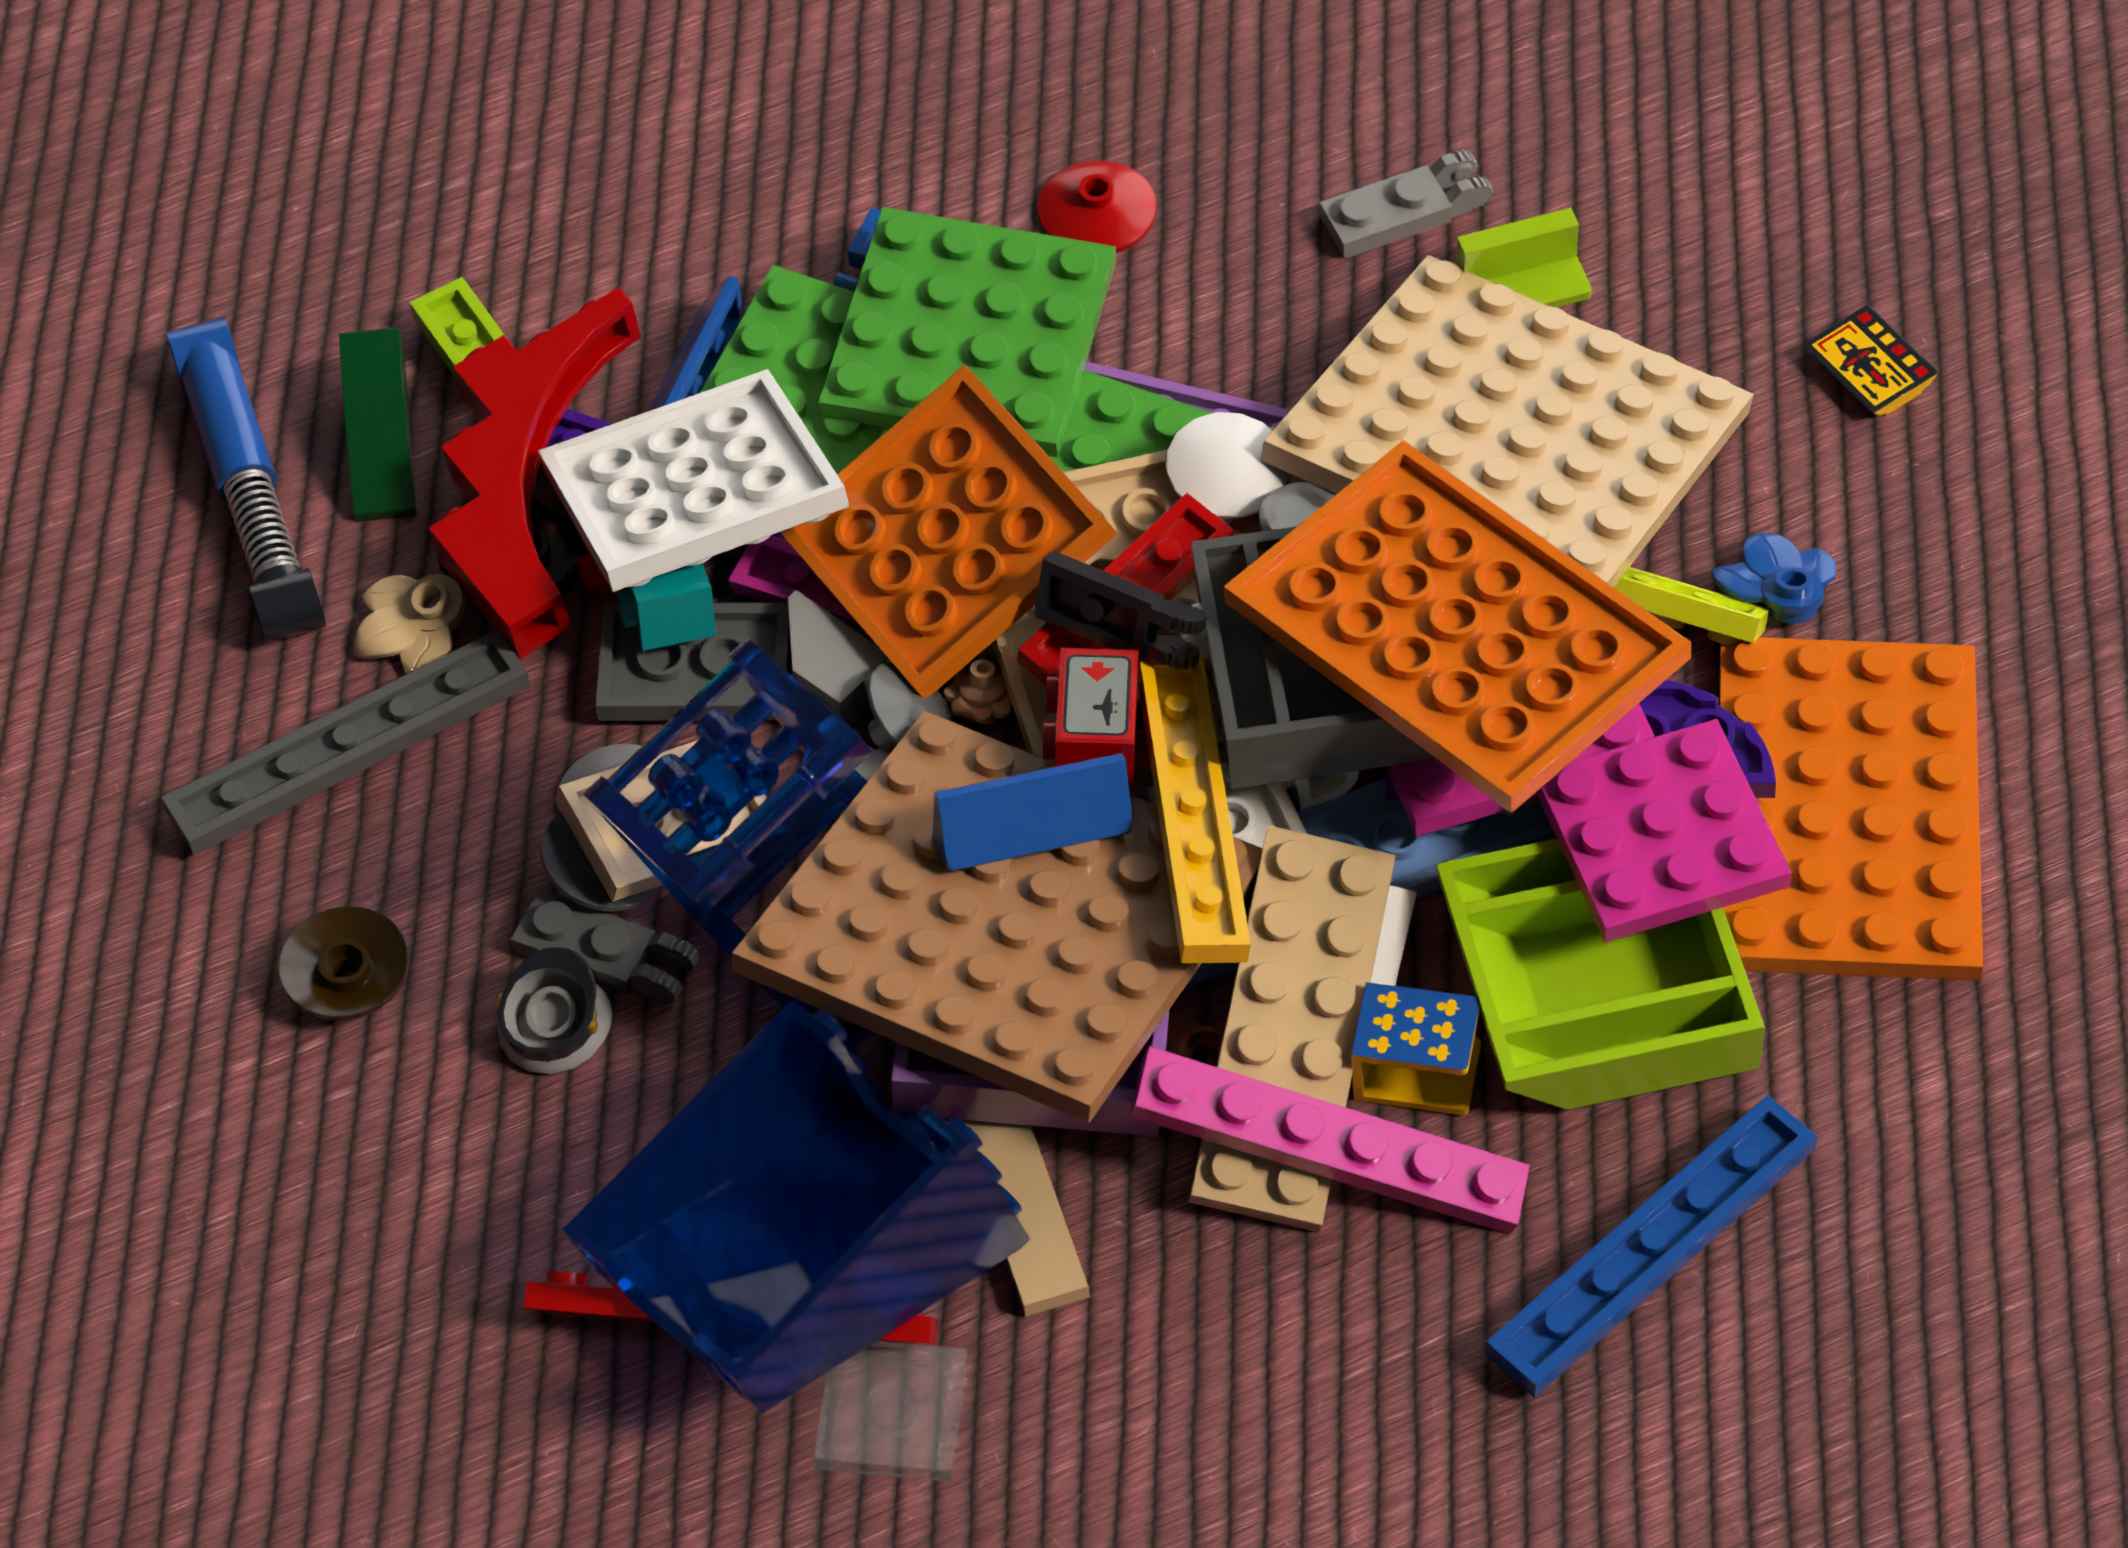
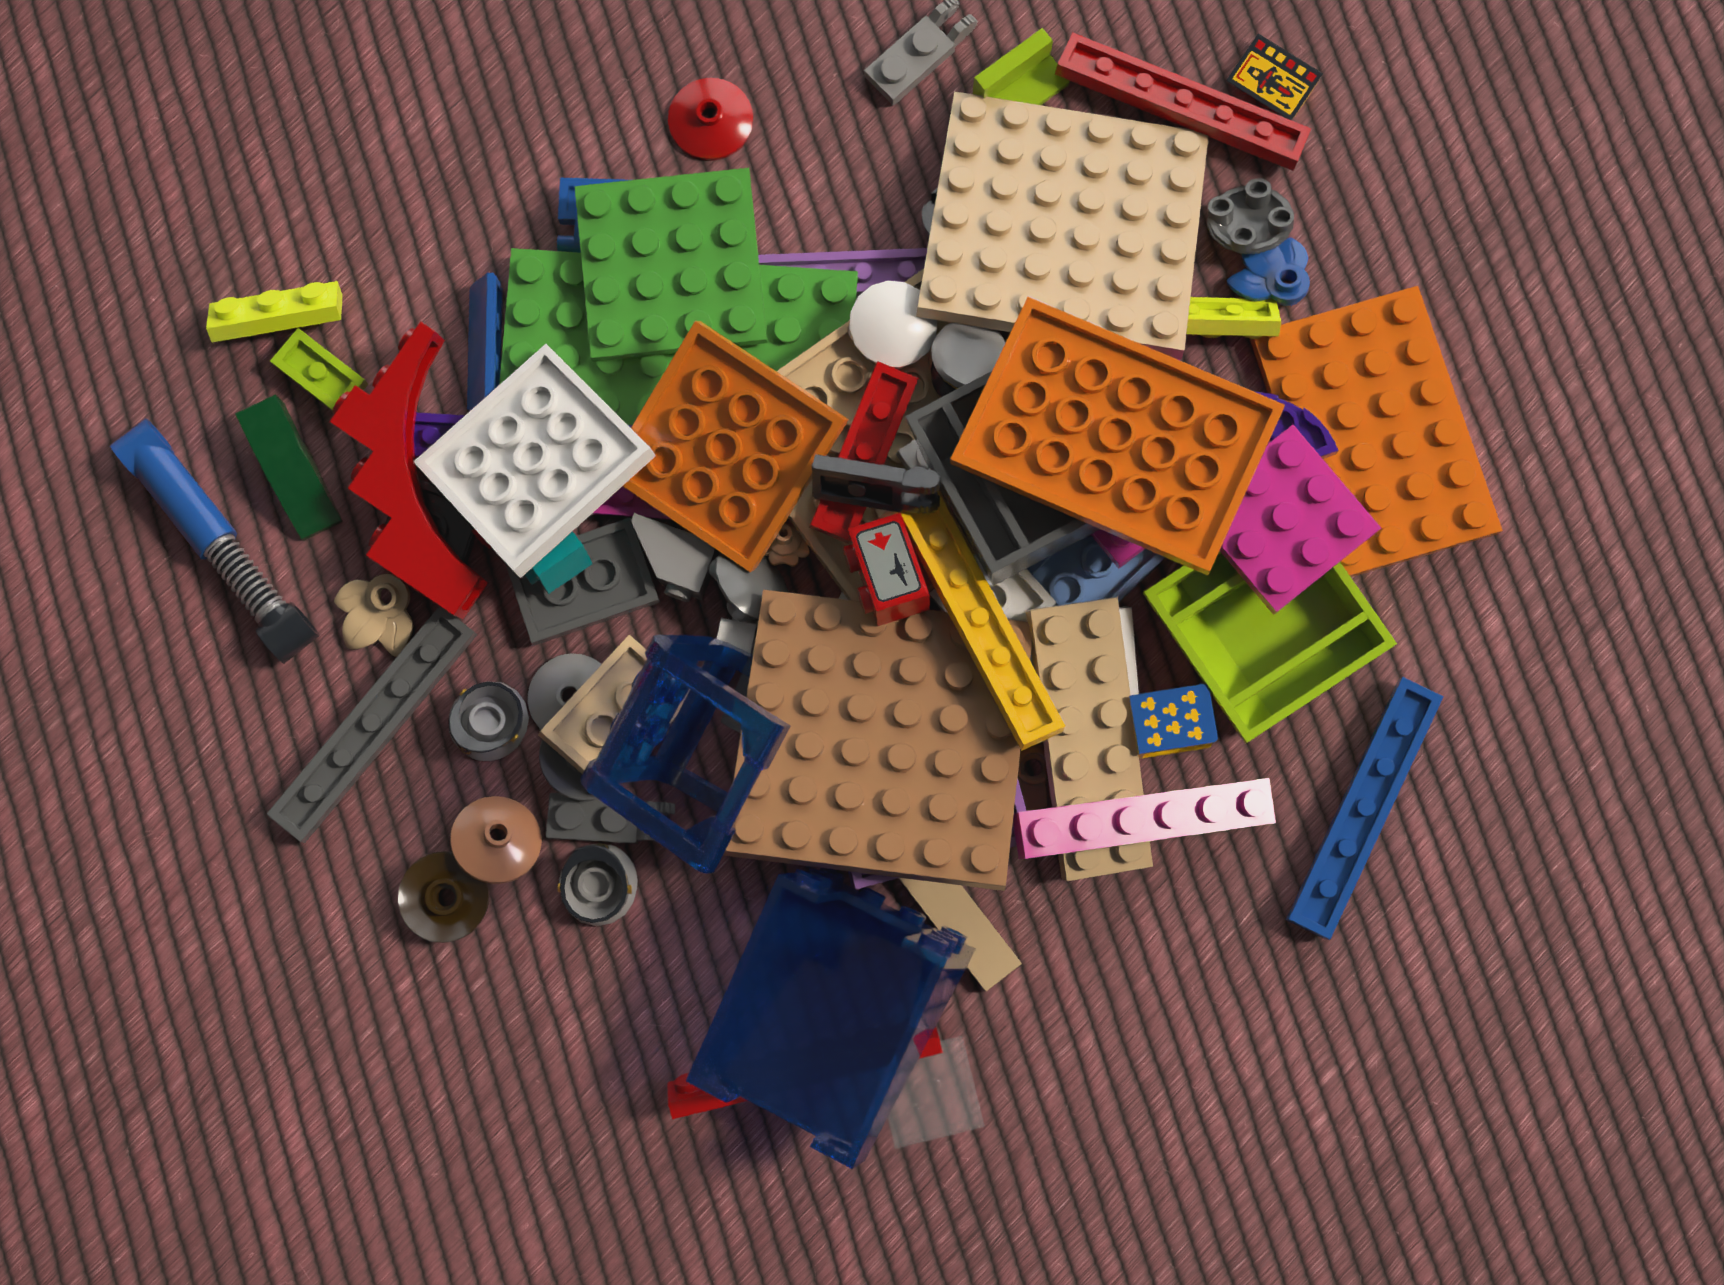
camera: 20 degrees left, 25 degrees up
(441, 252) = (274, 311): none -> neon yellow plate
(443, 922) = (491, 859): none -> nougat dish
(496, 783) = (488, 721): none -> light grey piece
(1032, 812) = (878, 666): blue slope -> none
(1733, 349) = (1182, 101): none -> plate
(1770, 502) = (1250, 218): none -> dark grey dish

